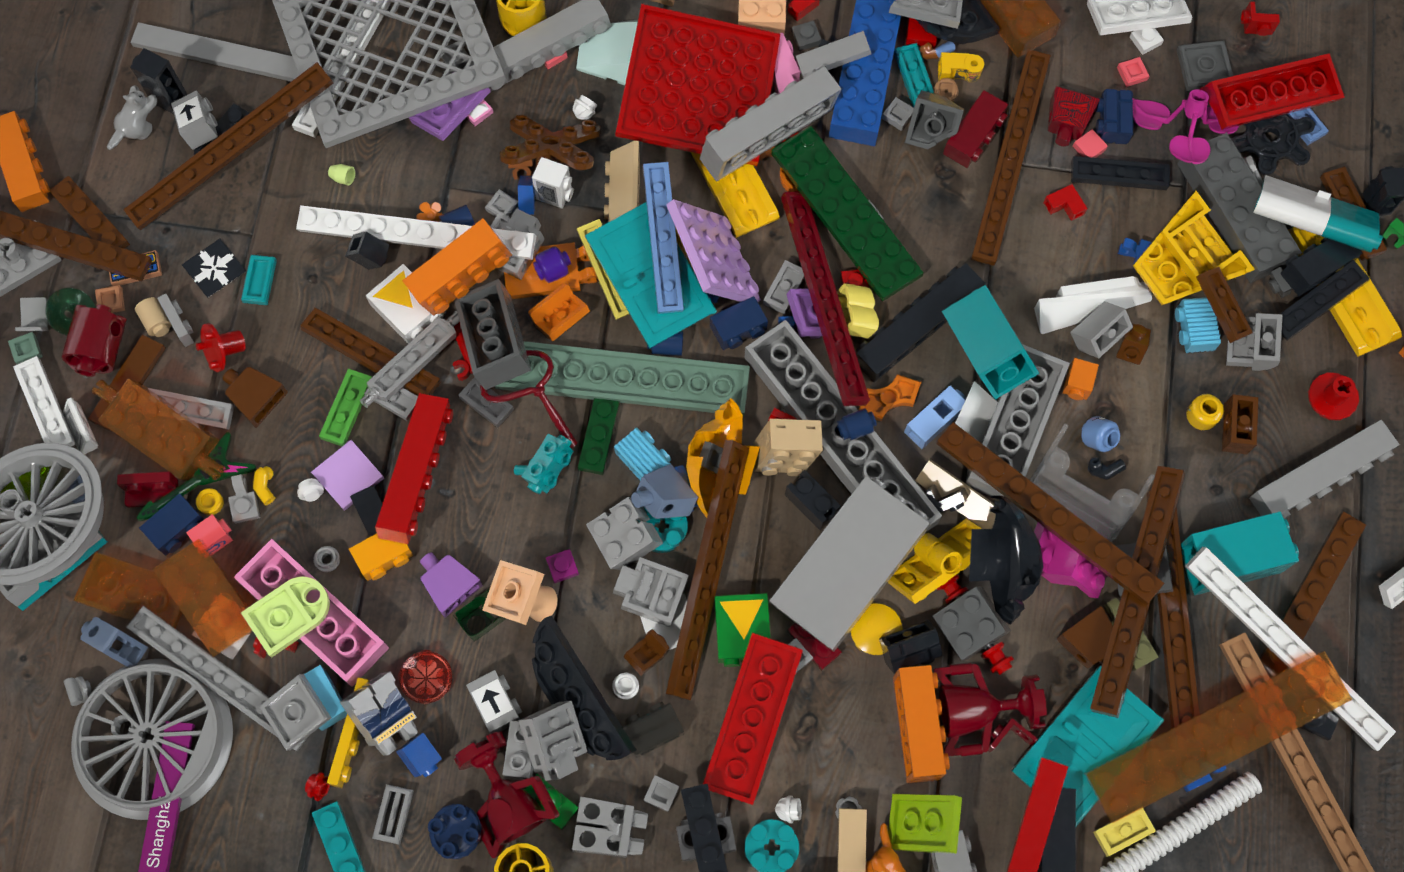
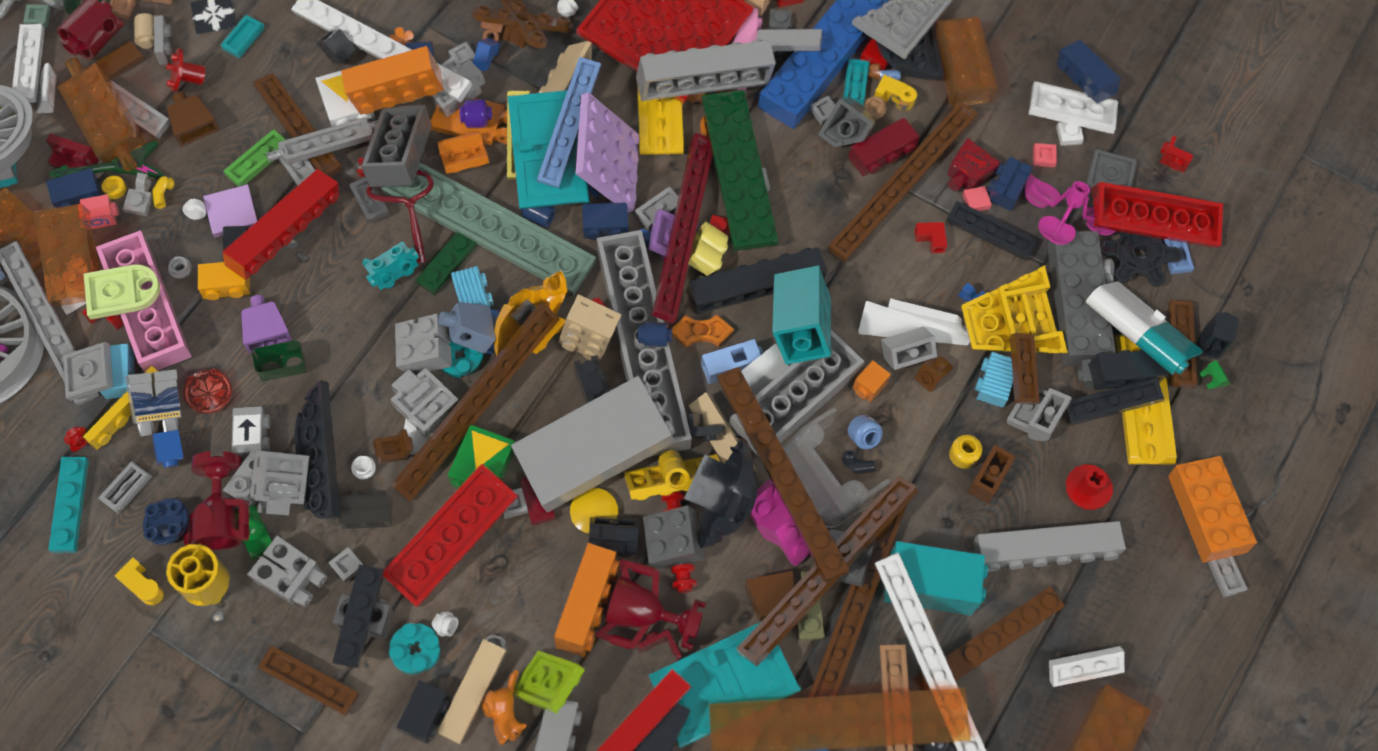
camera: 20 degrees right, 5 degrees down
(519, 594) = (309, 353): light nougat plant -> none
(552, 183) = (508, 51): white brick -> none
(562, 566) = (362, 351): magenta plate -> none

